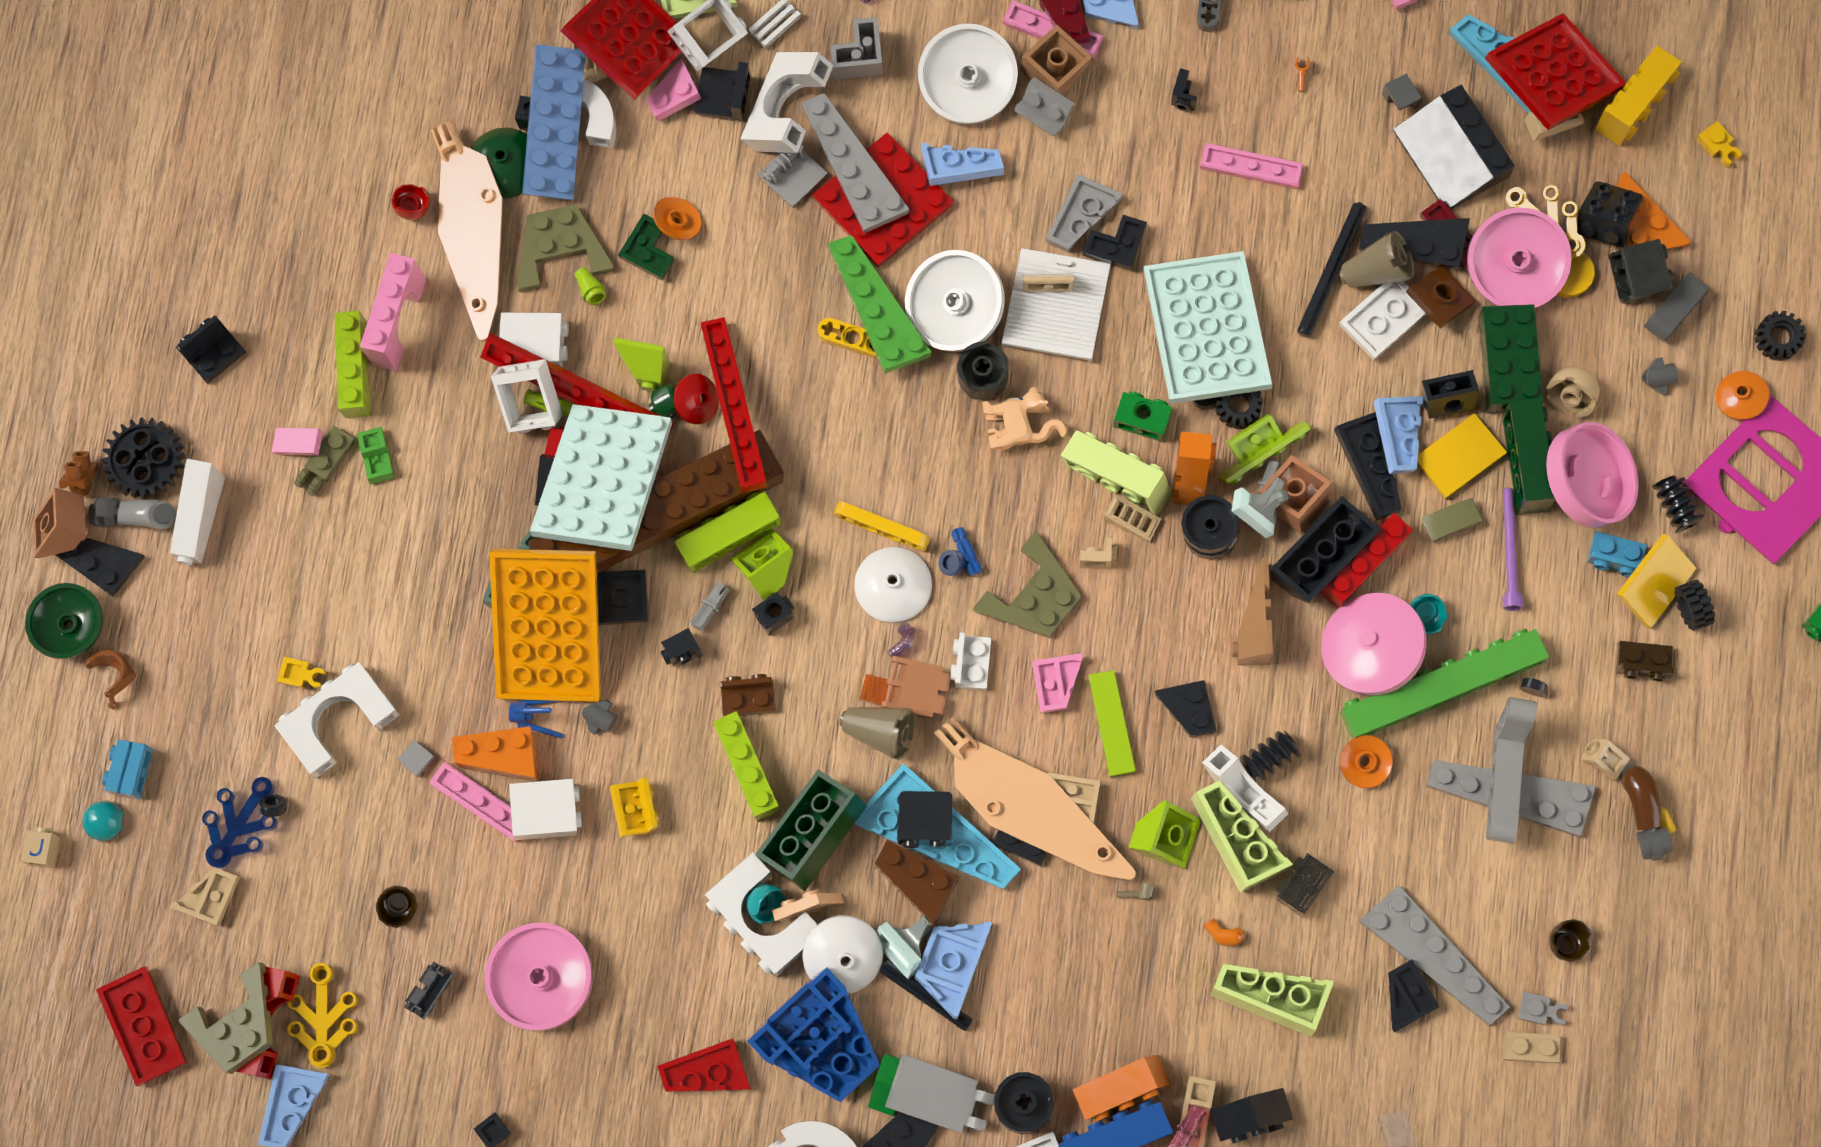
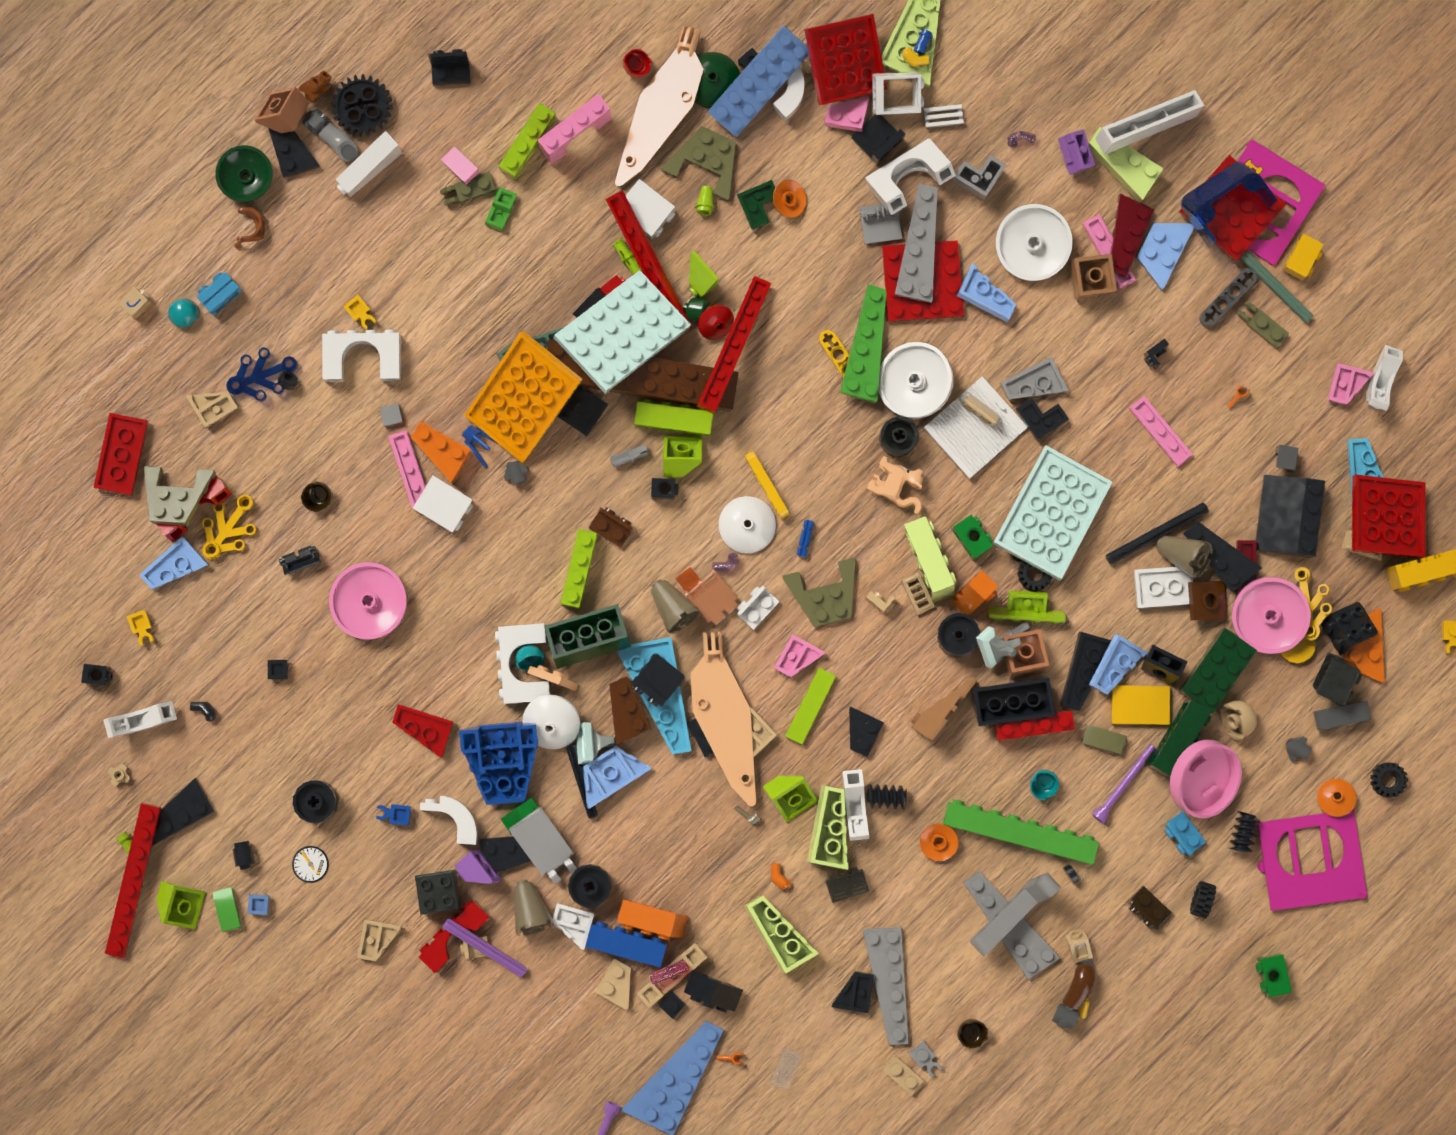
camera: 20 degrees right, 10 degrees up
(522, 372) = (623, 230): white window -> none
(634, 808) = (496, 543): yellow bracket -> none
(680, 648) = (593, 468): black brick -> none
(952, 562) = (791, 538): dark blue tile -> none
(1045, 107) = (1064, 299): light grey bracket -> none
(1374, 644) = (997, 778): bright pink dish -> none
(1654, 580) = (1192, 867): yellow tile -> none

